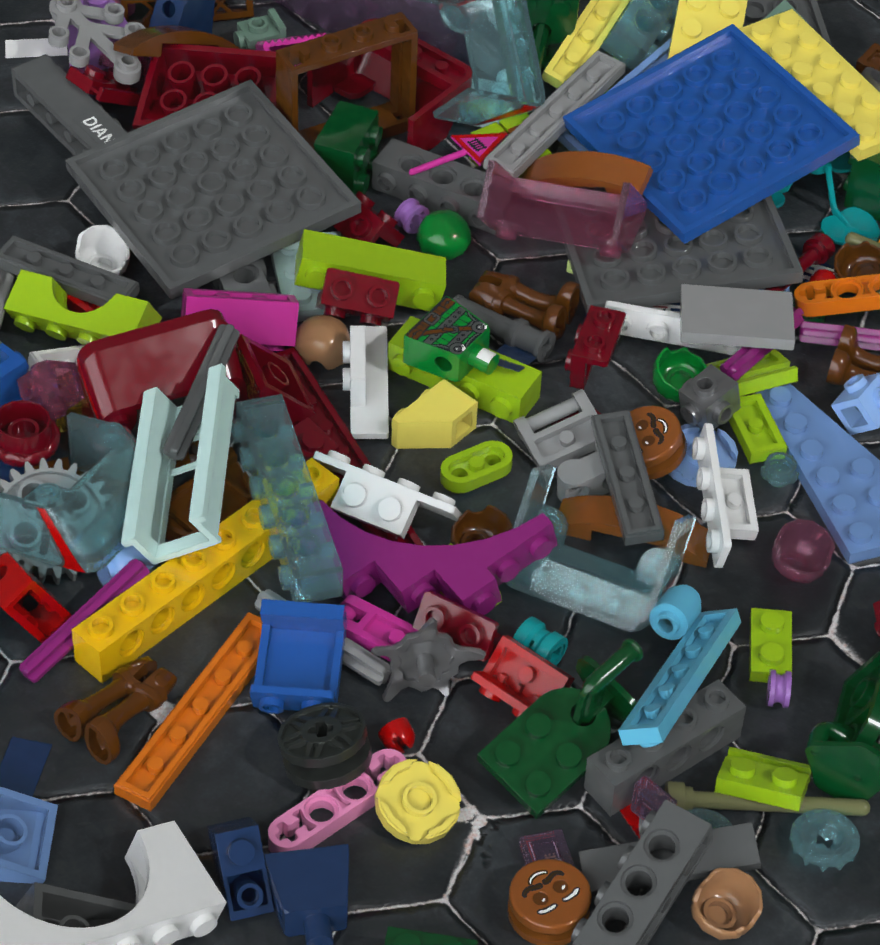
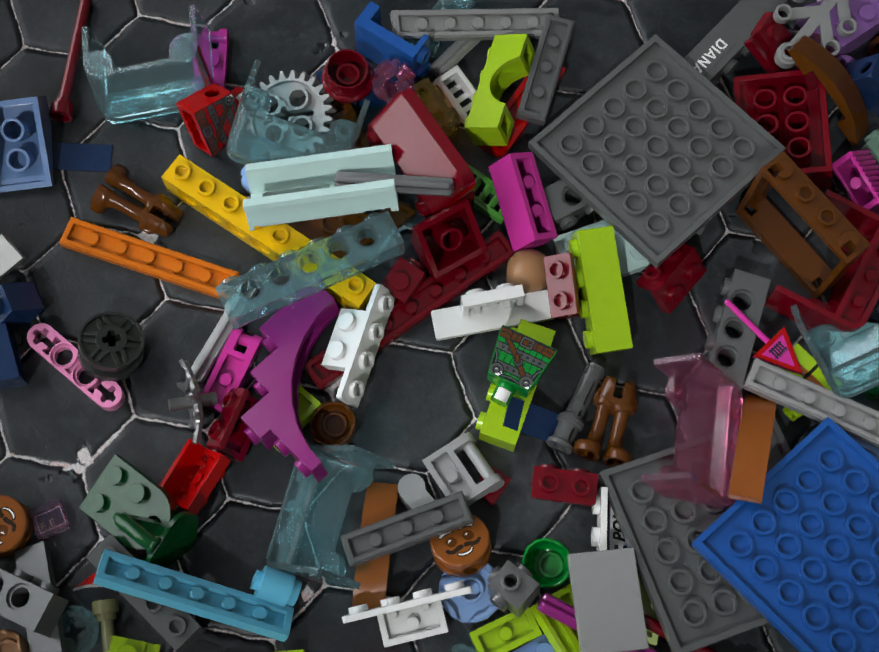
camera: 80 degrees right, 25 degrees up
(61, 641) = (223, 173): magenta axle -> none
(103, 248) = (574, 85): white hair -> none
(298, 655) = (185, 315): blue panel -> none
(350, 144) = (740, 245): dark green brick -> none
(397, 734) = (137, 397): red hinge -> none
(410, 215) = (691, 314): medium lavender bush -> none
(417, 801) = (78, 420): light yellow tile -> none
(435, 419) = (458, 373): light yellow slope -> none
(444, 234) = (676, 340): green hair -> none
(476, 466) = (415, 412): lime plate -> none
(536, 637) = (234, 488): teal wheel -> none
(648, 797) = (89, 593): clear purple tile -> none

